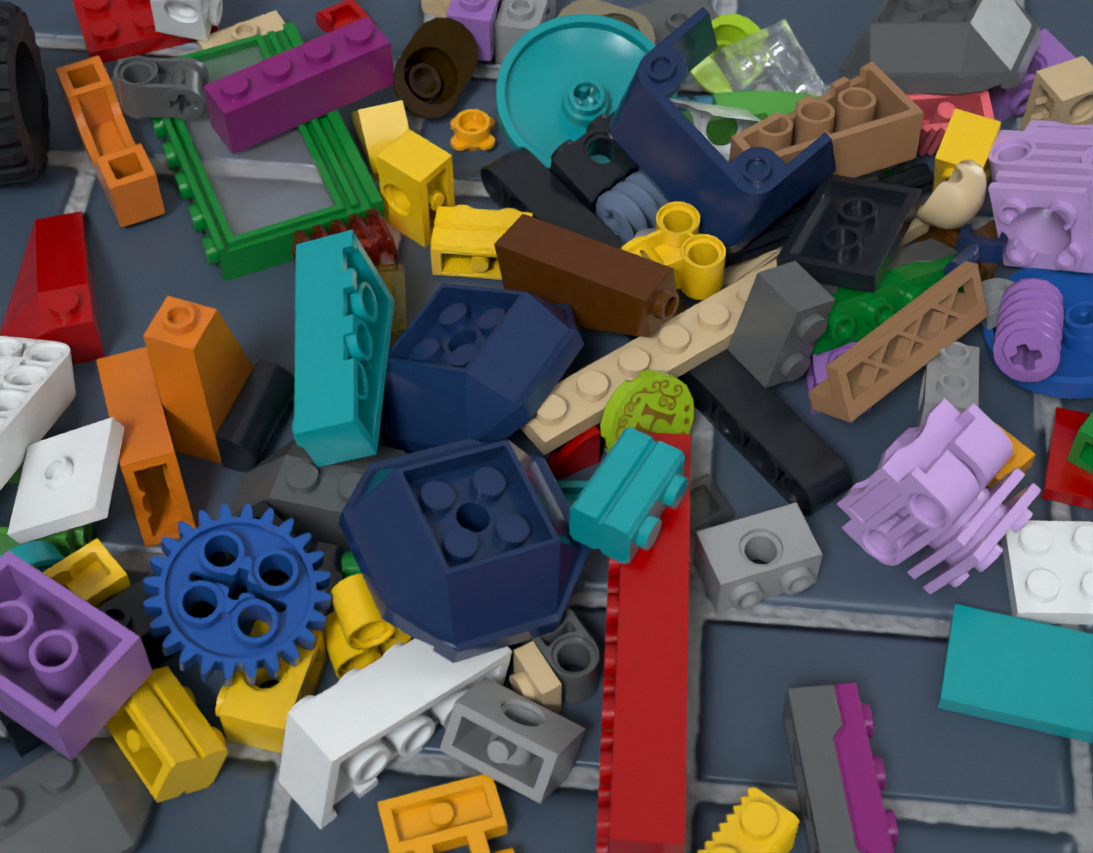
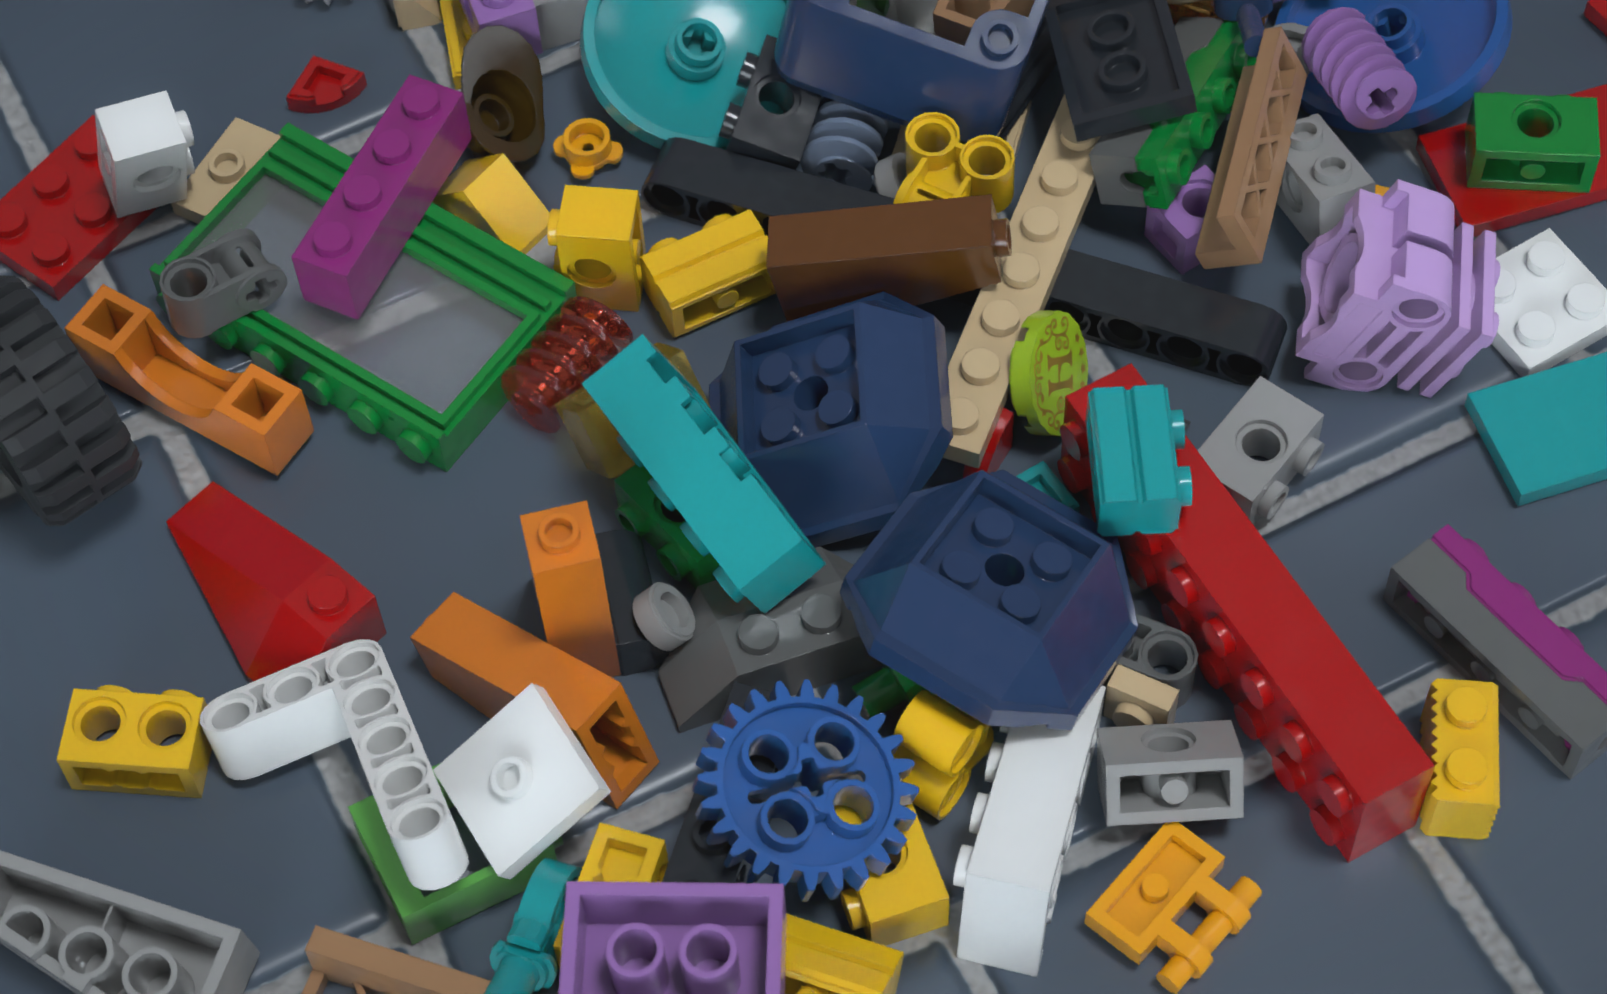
camera: 30 degrees left, 5 degrees up
(260, 435) = (664, 616): none -> light grey tile
(781, 324) = (1124, 196): dark grey brick -> none

